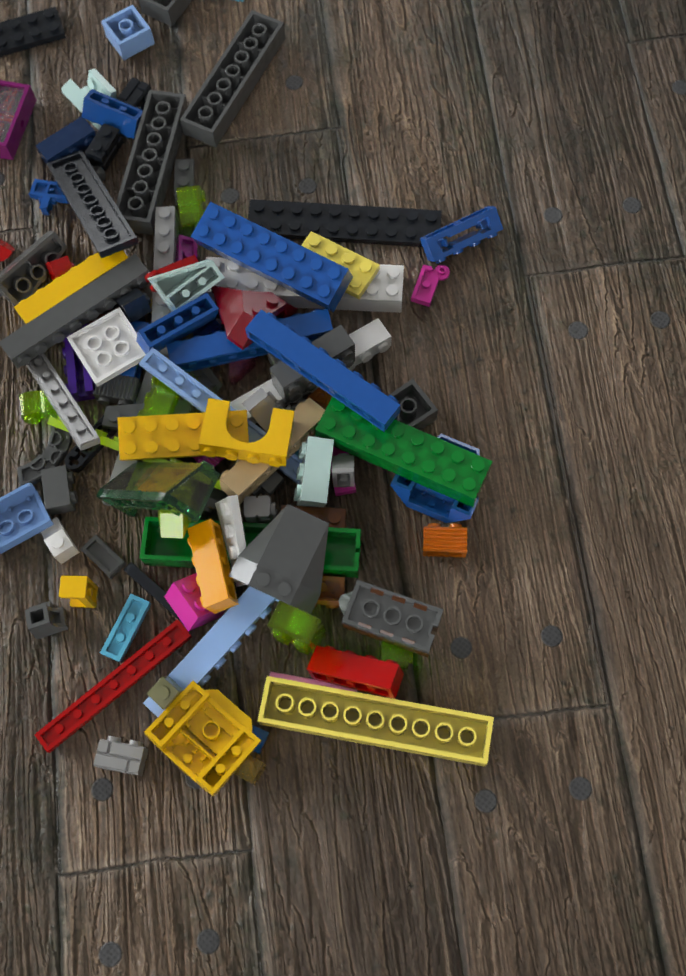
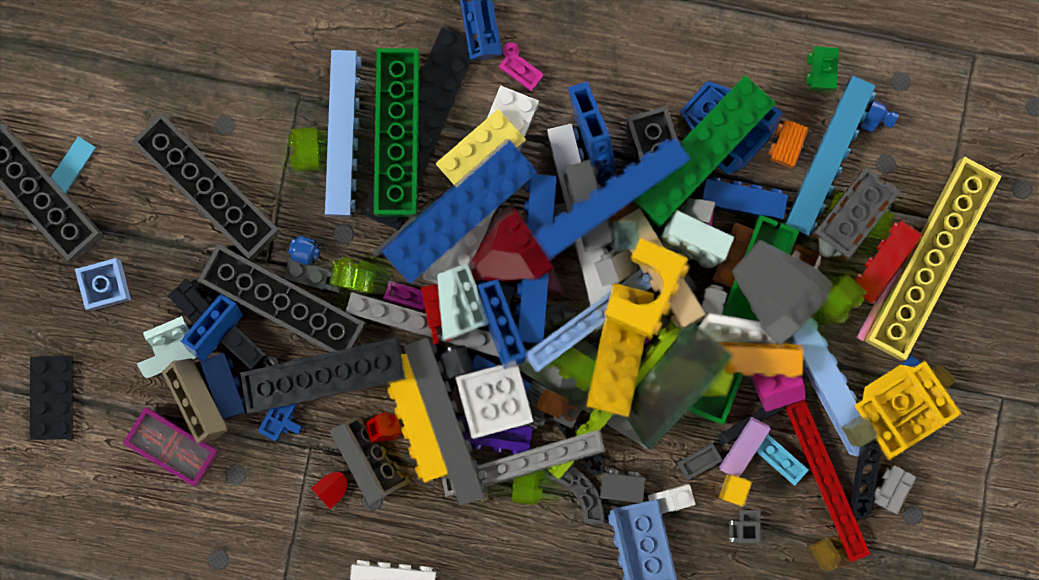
camera: 80 degrees left, 15 degrees up
(36, 706) = (825, 554): none -> clear yellow brick
(45, 121) = (194, 400): none -> dark tan brick
(116, 396) = (555, 405): none -> reddish brown brick
(122, 721) = (862, 479): none -> black beam
(124, 590) = (745, 447): none -> lavender tile
(203, 165) = (304, 250): none -> blue head
(292, 141) = (305, 149): none -> clear neon green brick
(295, 400) = (625, 234): none -> clear light blue panel
(316, 163) = (341, 133): none -> light blue brick
(330, 195) = (397, 132): none -> green brick
(373, 516) = (745, 200): none -> blue brick
(391, 349) = (593, 132): none -> blue slope
(451, 584) = (830, 155): none -> dark azure brick
(508, 619) = (878, 113): none -> blue piece
(533, 551) = (823, 69): none -> green brick

